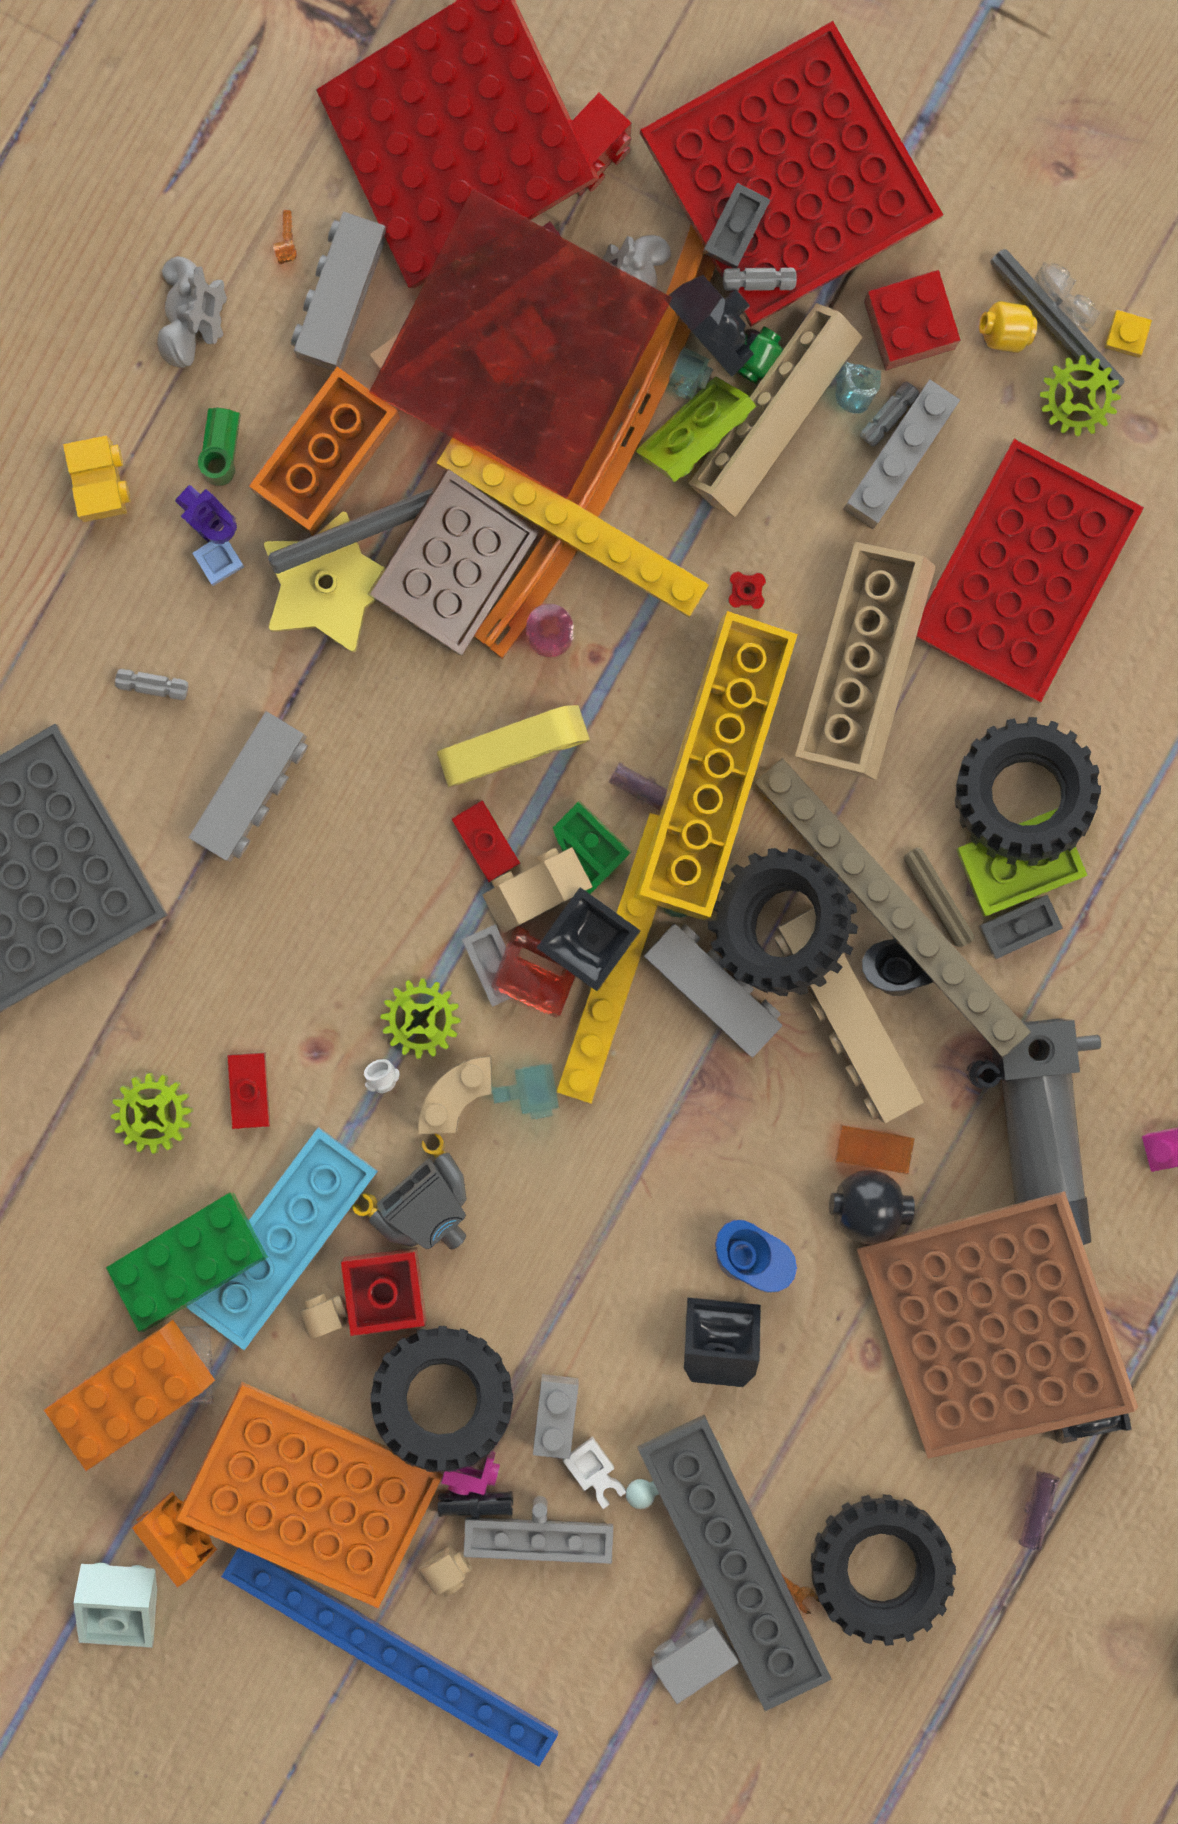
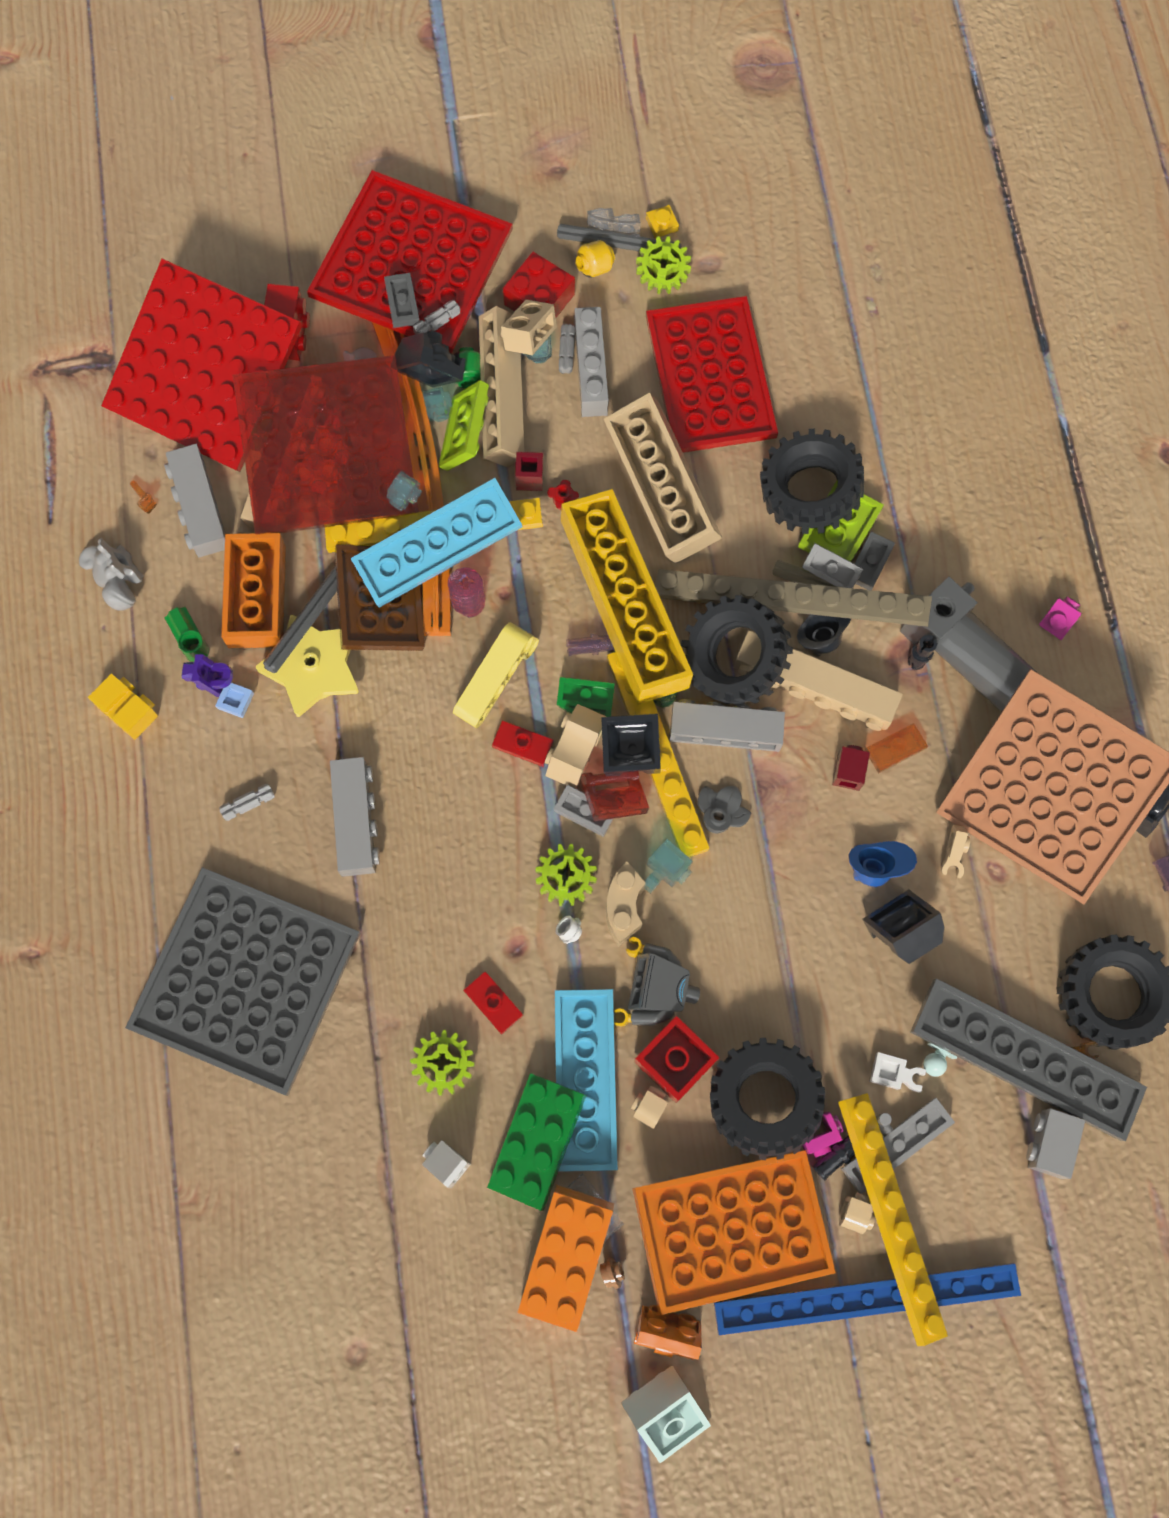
camera: 45 degrees left, 15 degrees down
(80, 1215) = (445, 1163): none -> white slope
(164, 1441) = (612, 1273): none -> medium nougat plate
(472, 1602) = (893, 1220): none -> yellow plate
(555, 1416) = (844, 1056): light grey brick -> none
(556, 555) = (436, 542): none -> medium azure plate
(564, 468) = (403, 491): none -> clear light blue plate
(644, 1070) = (723, 805): none -> dark grey plate
(727, 538) = (529, 471): none -> dark red brick
(808, 1134) = (851, 767): none -> dark red brick
(849, 1300) = (957, 844): none -> tan plate
(856, 367) = (529, 327): none -> tan brick
(870, 1207) = (923, 779): black brick -> none
(966, 906) = (832, 567): none -> light grey plate

